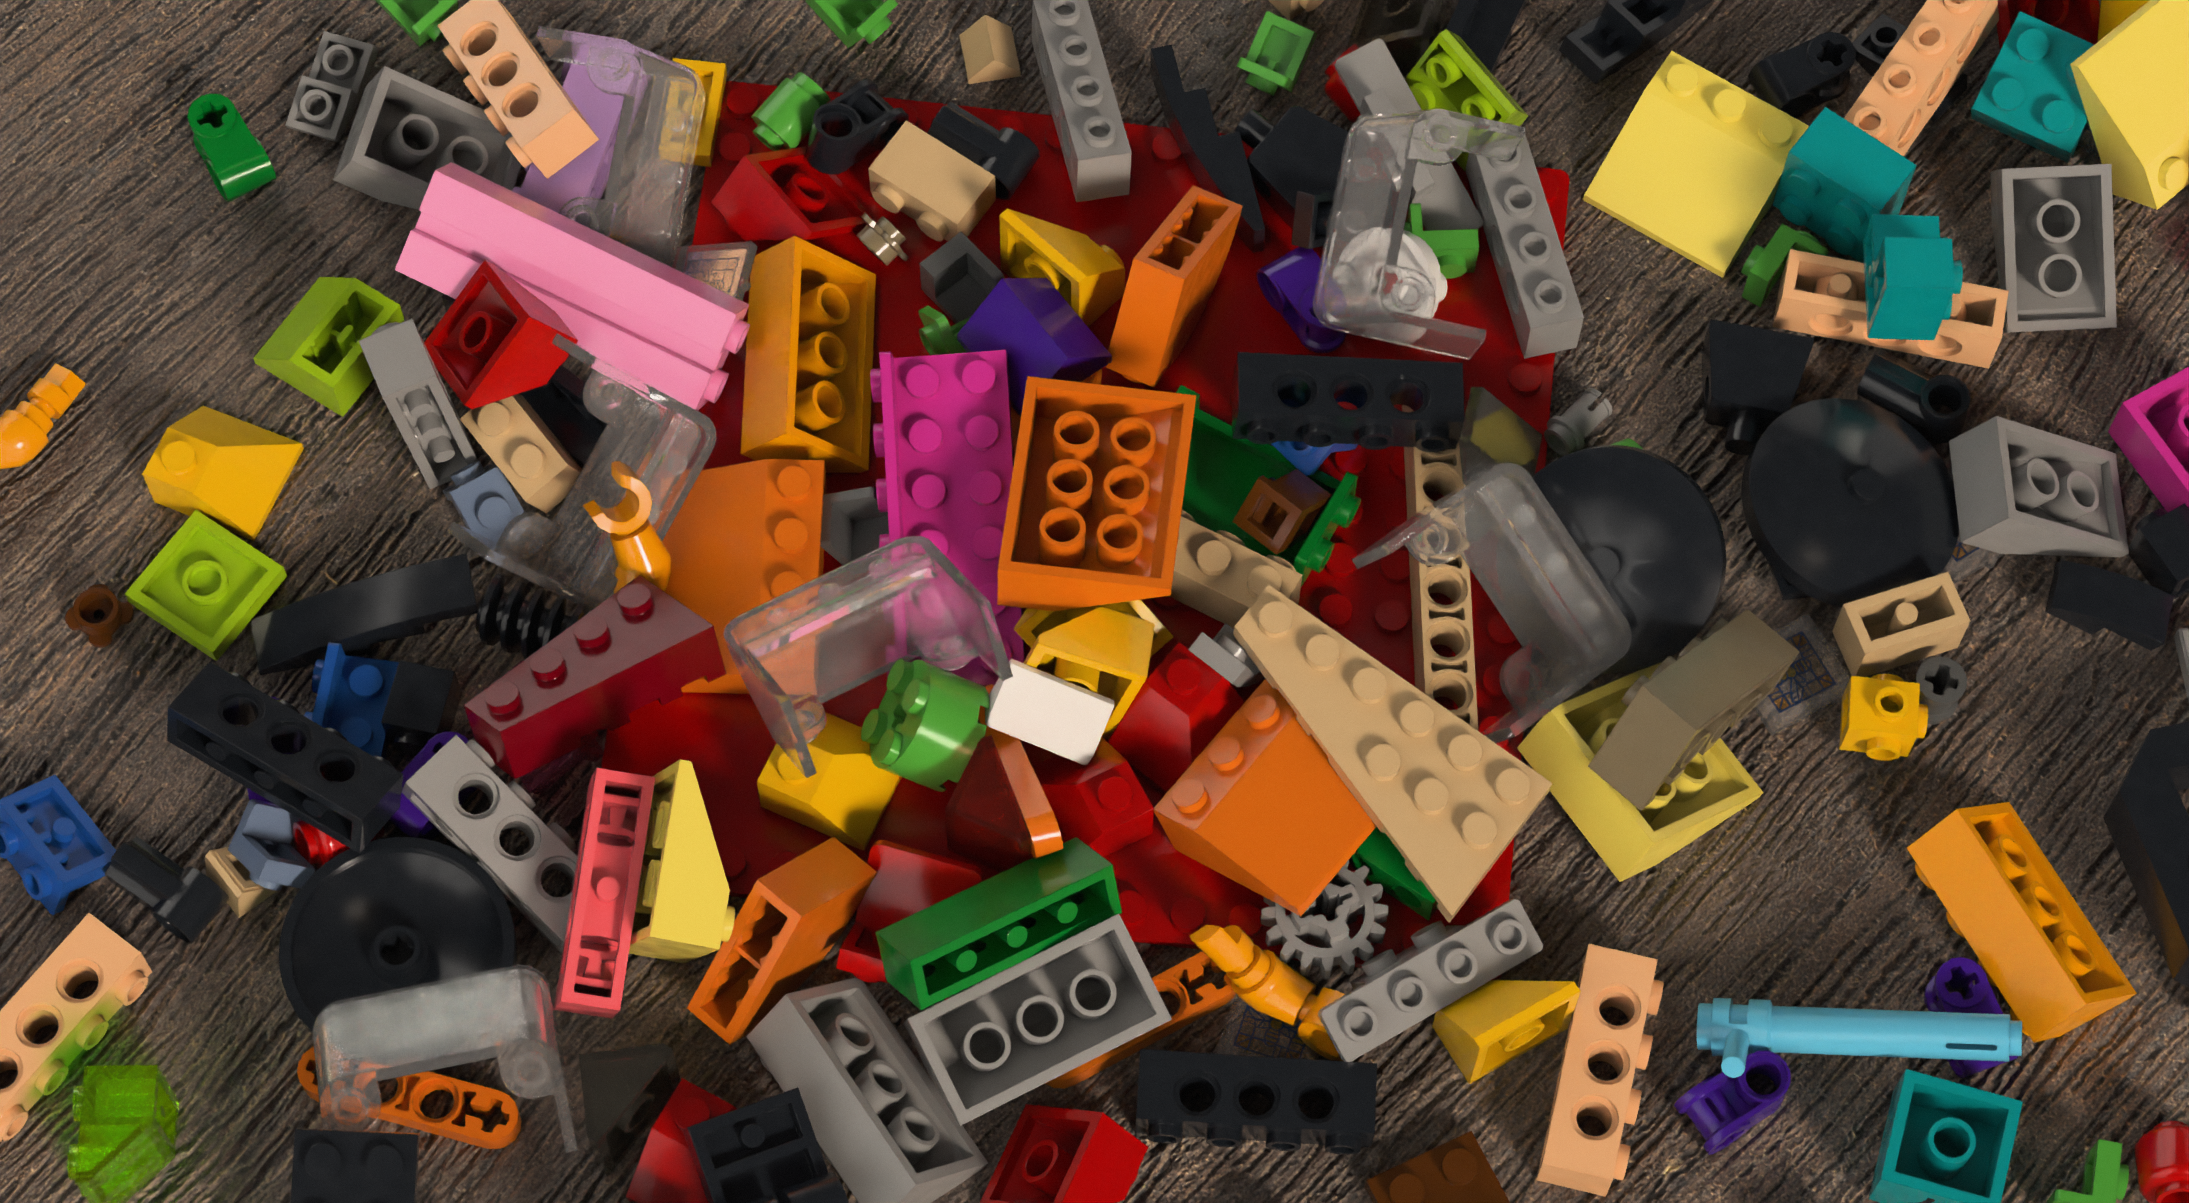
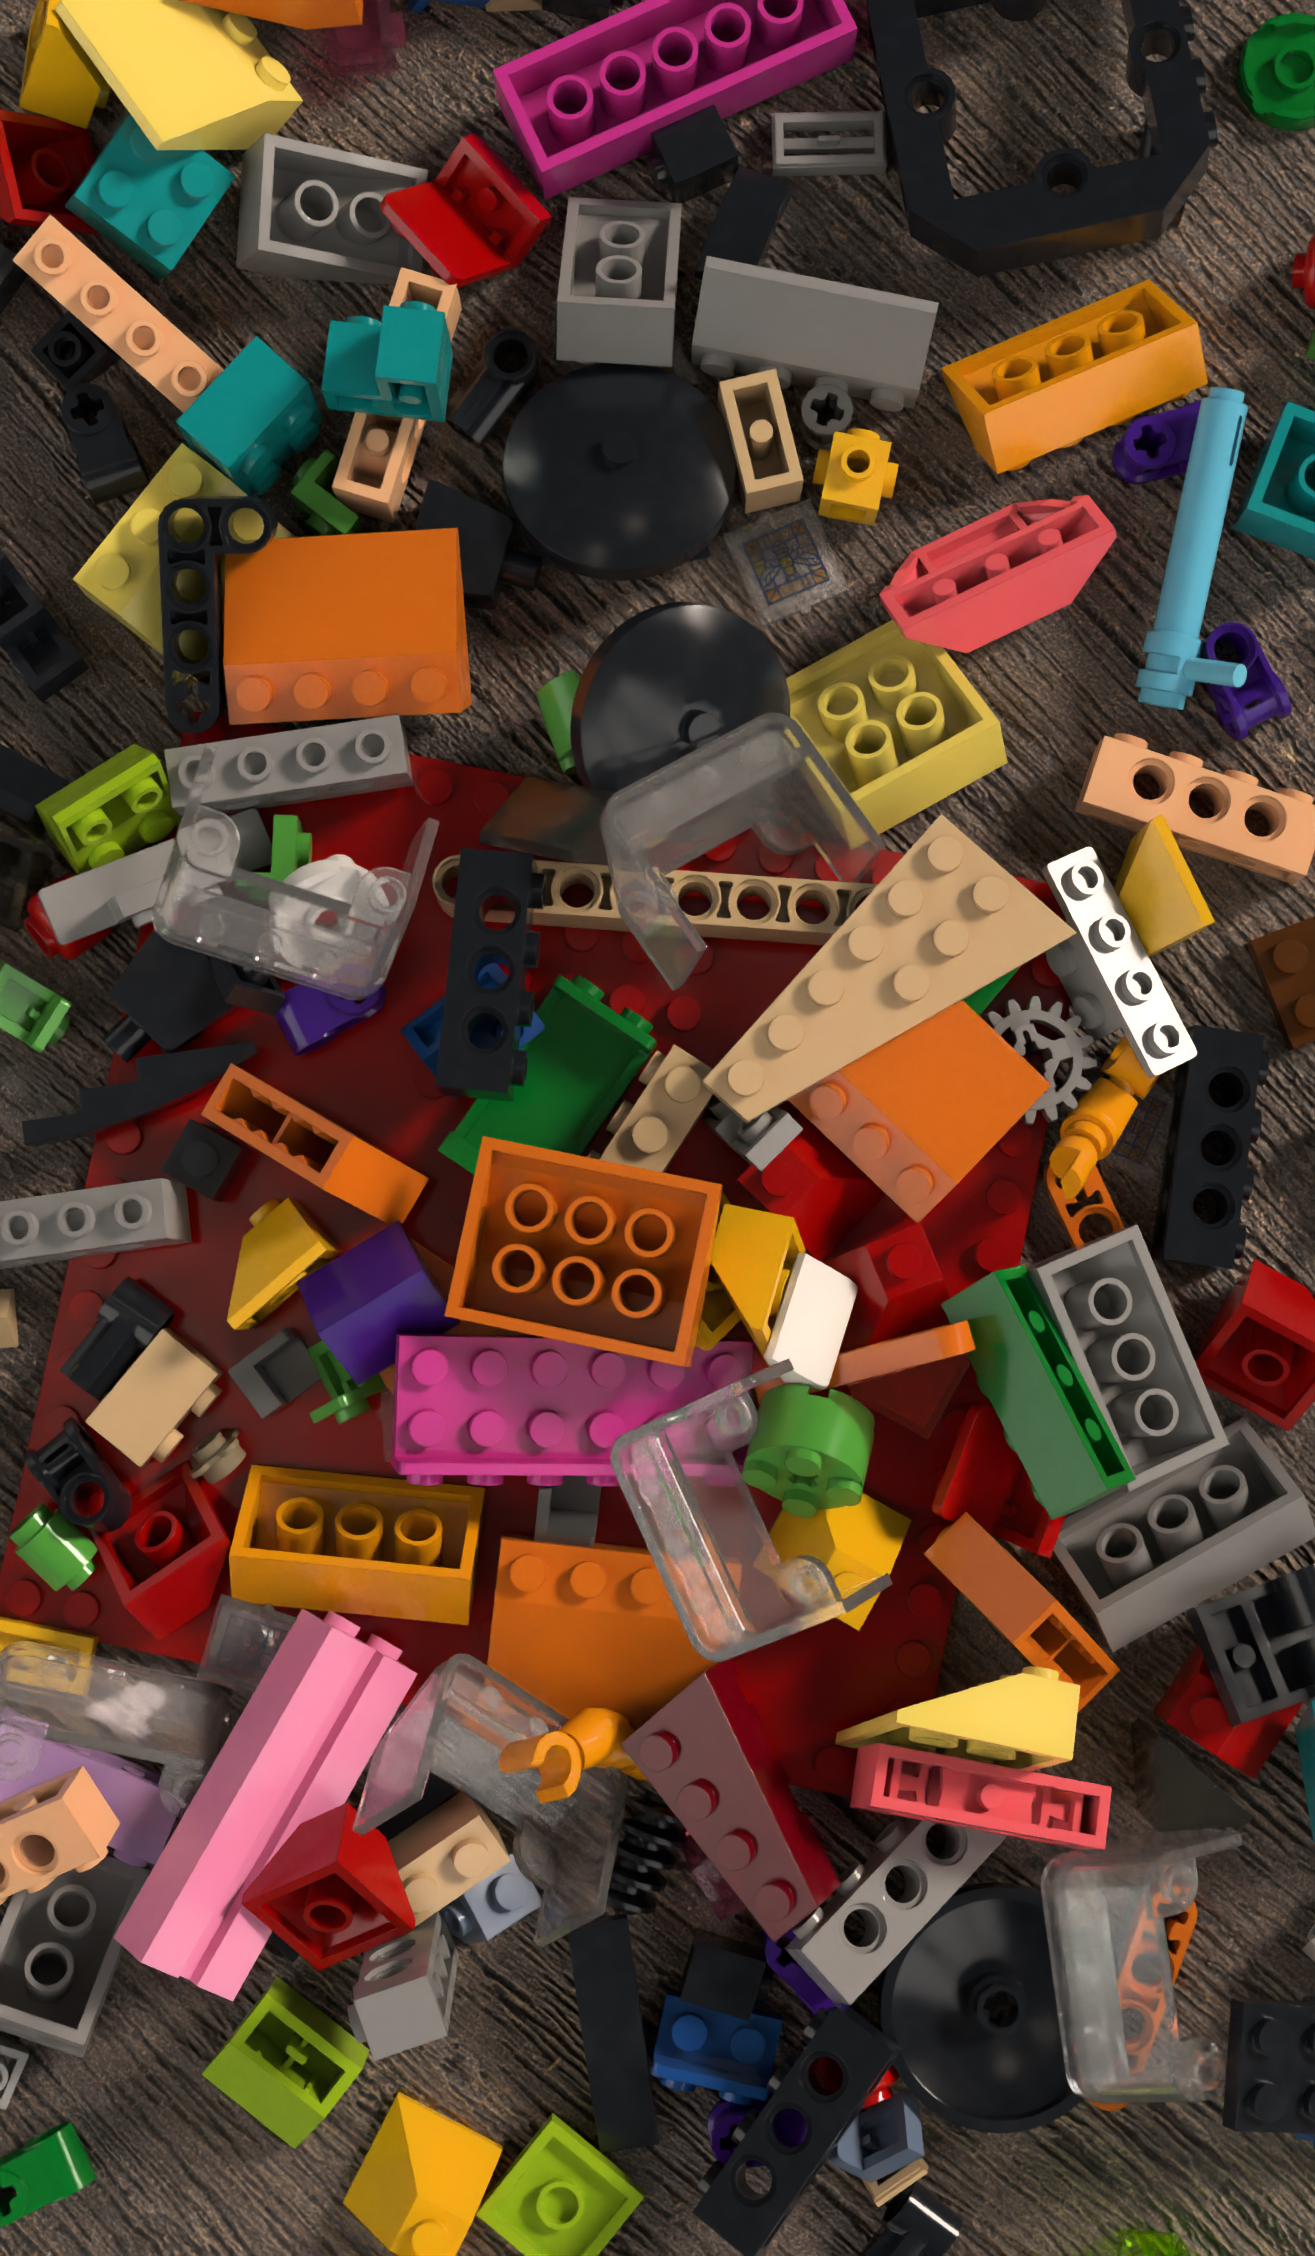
camera: 85 degrees left, 20 degrees up
(1147, 200) = (205, 1161): none -> black brick
(1282, 510) = (593, 1057): reddish brown brick -> none
(1568, 431) = (491, 739): light grey pin -> none
(1656, 158) = (205, 614): none -> black beam
(1660, 278) = (346, 628): none -> orange slope
(1691, 705) = (852, 659): dark tan wedge -> none
(1801, 849) = (998, 572): none -> coral wedge
(2012, 665) = (812, 332): none -> light grey slope
(2067, 354) = (470, 218): none -> red bracket

